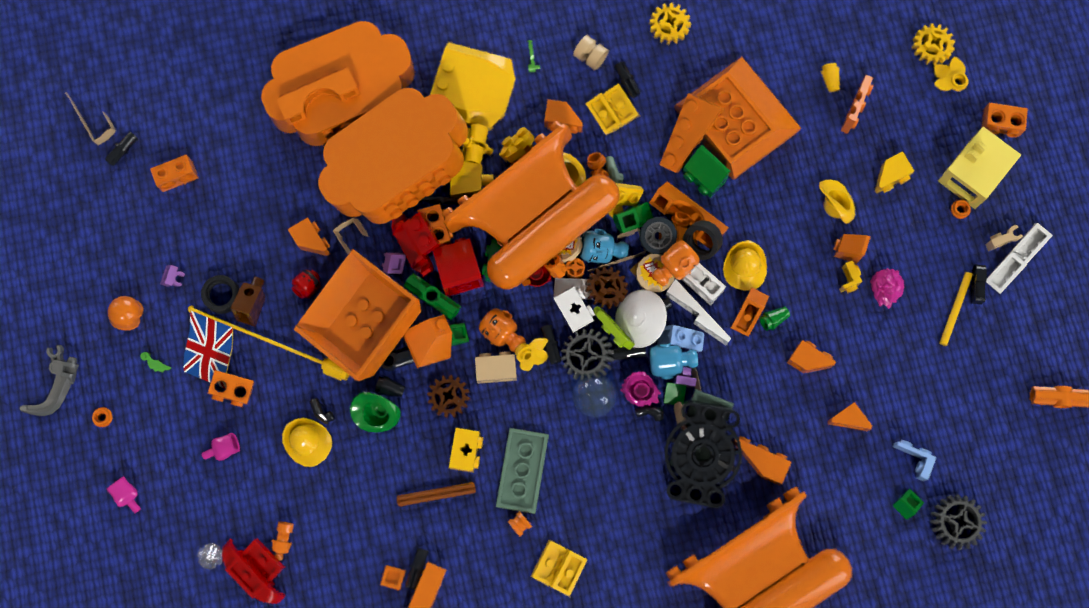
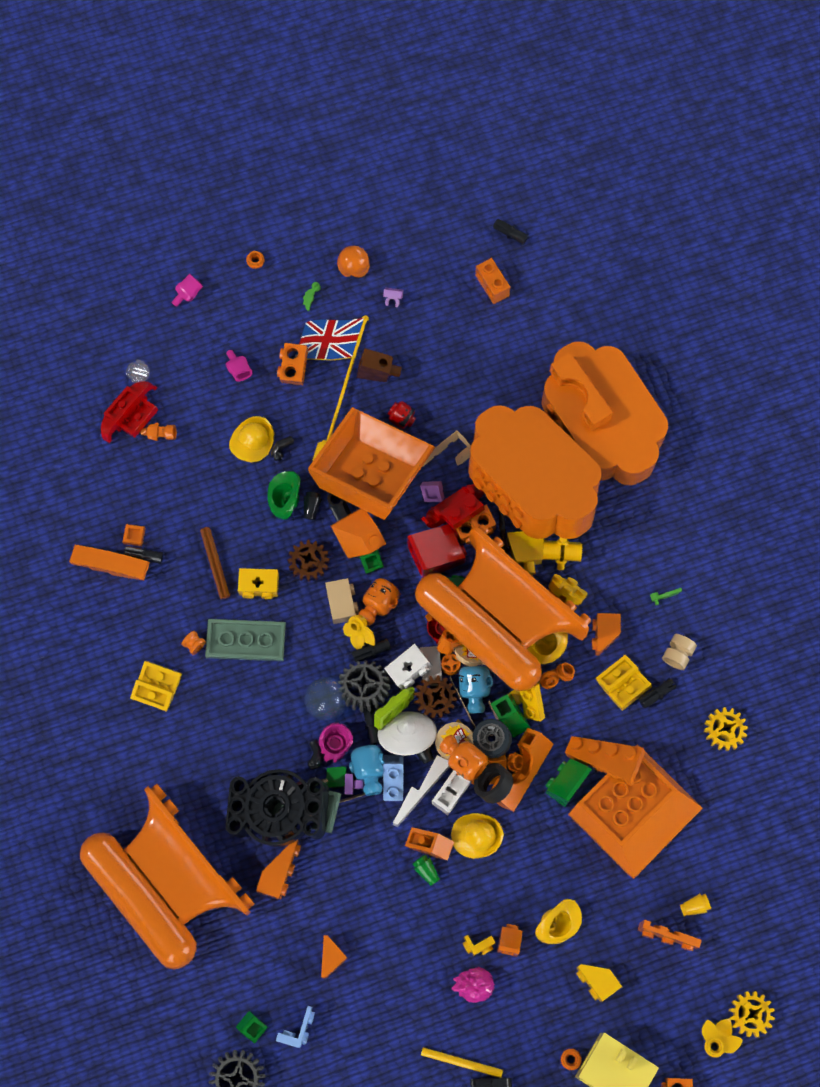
camera: 80 degrees right, 5 degrees down
(65, 376) = (288, 222): dark grey piece -> none
(105, 136) = (538, 213): tan piece -> none
(207, 287) = (383, 328): black tyre -> none
(307, 237) = (448, 408): orange slope -> none
(442, 303) = (410, 522): green piece -> none
(475, 83) = (626, 541): yellow wedge -> none
(613, 171) = (558, 688): sand green arm -> none
(809, 359) = (387, 908): orange slope -> none

